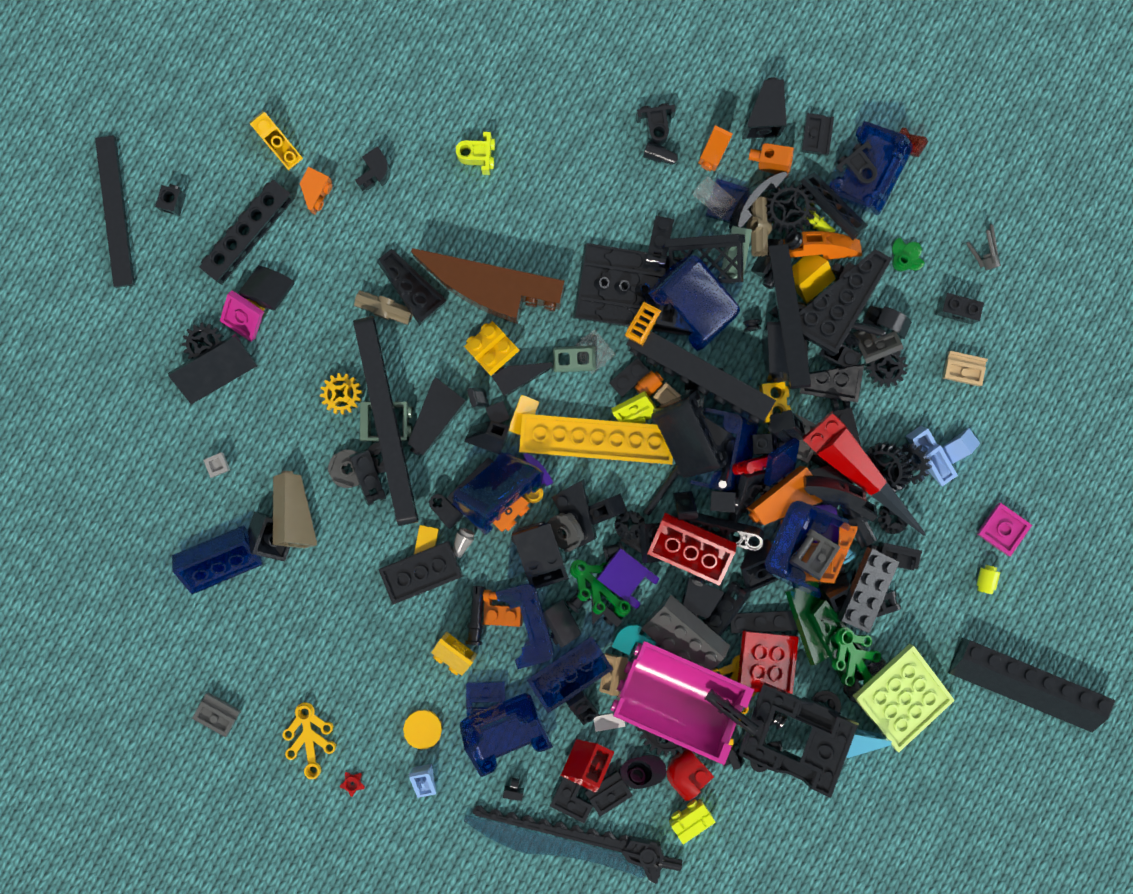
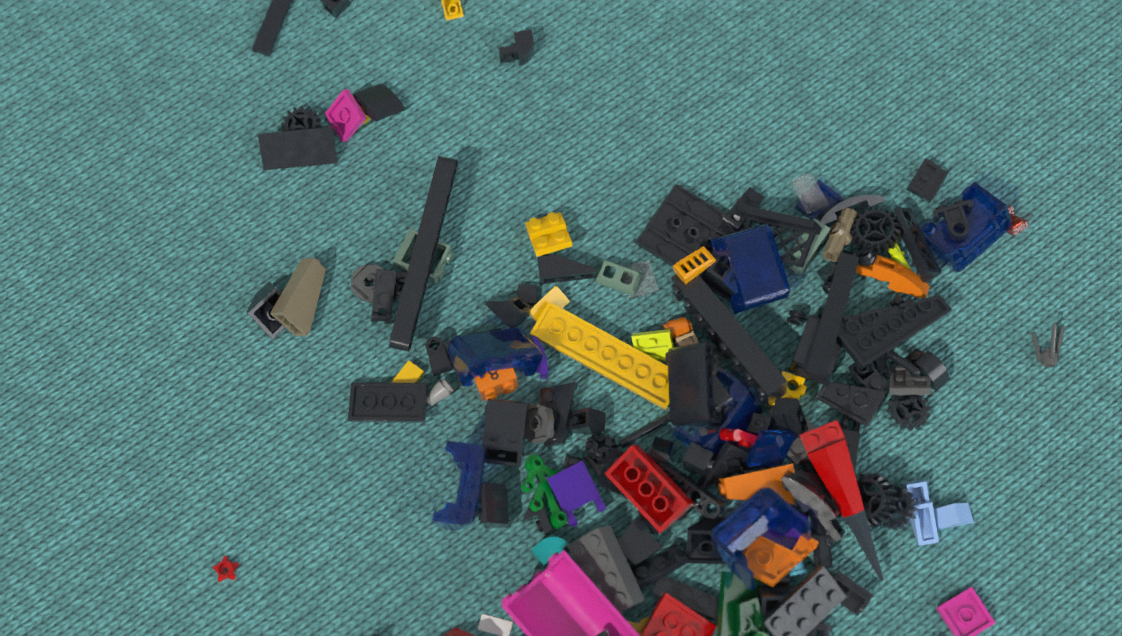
camera: 30 degrees right, 15 degrees down
(215, 560) = (212, 309): clear blue slope -> none
(216, 465) = (258, 228): light grey tile -> none
(216, 714) = (138, 446): dark grey plate -> none
(247, 242) = (395, 54): black brick -> none
(308, 737) = (208, 505): yellow plant -> none
(314, 188) = (461, 41): orange slope -> none
(346, 388) = (388, 220): yellow gear -> none
(383, 307) = (471, 161): dark tan piece -> none
(412, 288) = (503, 156): black wing -> none
(422, 729) = (316, 548): yellow tile -> none
(423, 780) = (292, 597): light blue slope -> none
(435, 416) = (469, 272): black slope -> none
(453, 654) = (380, 487): yellow slope -> none
(475, 625) = (413, 473): black pin -> none
(478, 398) = (515, 271): black slope -> none
(479, 154) = (616, 72): neon yellow pin -> none
(483, 692) = (391, 540): clear blue plate -> none
(492, 287) = (574, 183): reddish brown slope -> none
(500, 614) = (440, 473): orange plate -> none
(503, 730) = (390, 584): clear blue windscreen -> none
(534, 497) = (525, 382): yellow plate -> none
(570, 674) = (479, 555): clear blue slope -> none
(575, 603) = (517, 495): black bush -> none
(582, 707) = (475, 591): black slope -> none
(611, 680) = (521, 574): tan slope -> none
(629, 377) = (659, 315): black plate -> none
(656, 120) = (785, 110): black pin -> none
(659, 154) = (776, 137): black hinge -> none
(715, 148) = (827, 150): orange slope -> none
(768, 112) = (887, 140): black slope -> none
(773, 158) = (878, 182): orange torso -> none
(811, 276) = (869, 296): yellow slope -> none
(819, 559) = (768, 553): dark grey plate -> none
(884, 521) = (855, 565): black gear -> none
(908, 253) = (971, 319): green plate -> none
(959, 308) = (1001, 386): black brick -> none
(964, 368) = (985, 444): tan plate -> none

